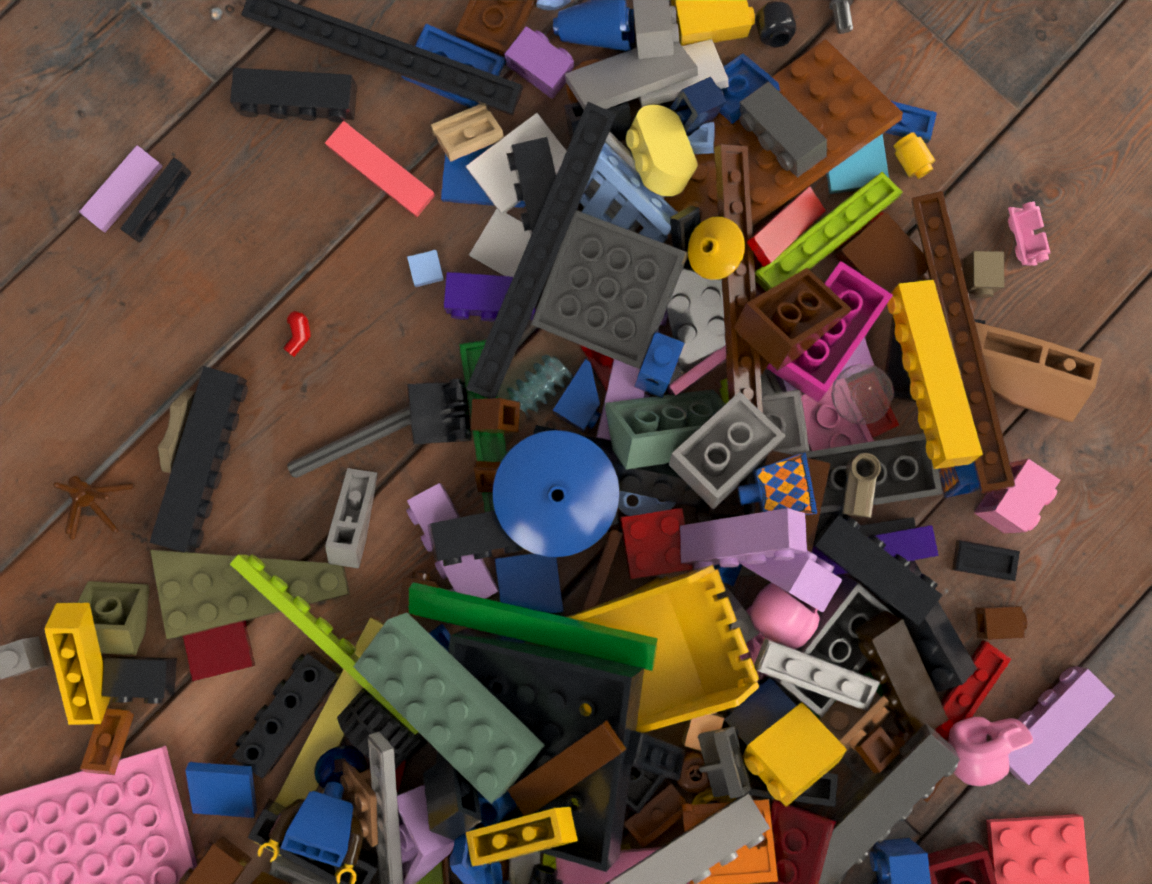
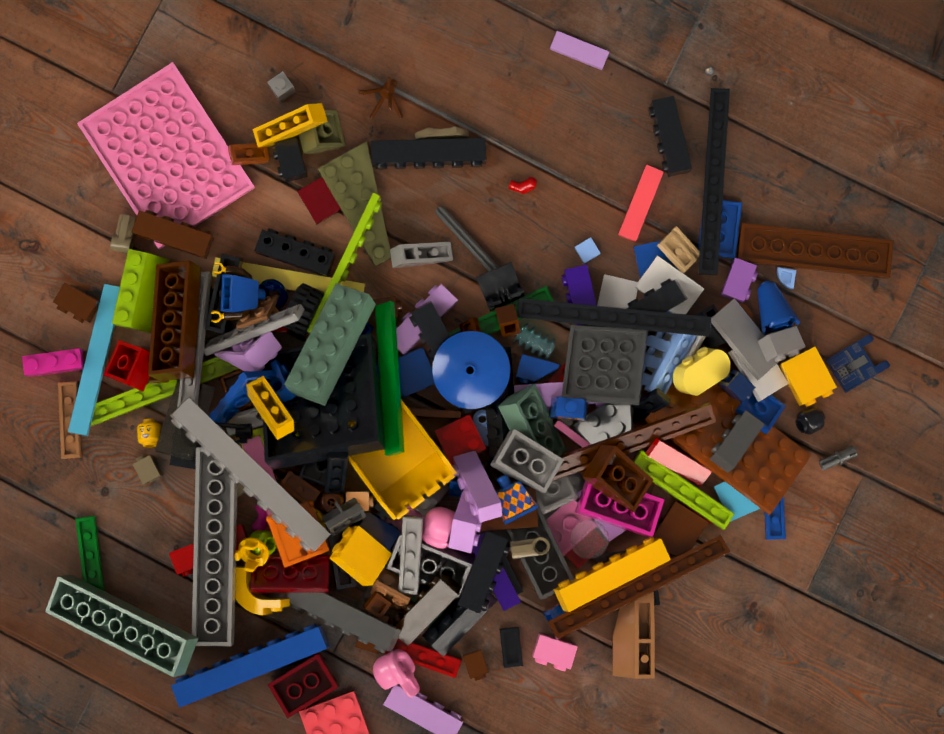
camera: 75 degrees right, 0 degrees up
(156, 200) = (578, 75): black tile -> none
(221, 789) = (240, 229): blue tile -> none
(450, 801) = (277, 361): black brick -> none
(566, 769) = (316, 421): reddish brown tile -> none
(703, 139) = (718, 395): light blue tile -> none
(726, 250) = (649, 426): yellow dish -> none
(914, 156) = (752, 531): yellow brick -> none
(984, 273) = (689, 596): dark tan brick -> none
(1030, 247) = (716, 620): bright pink hinge -> none

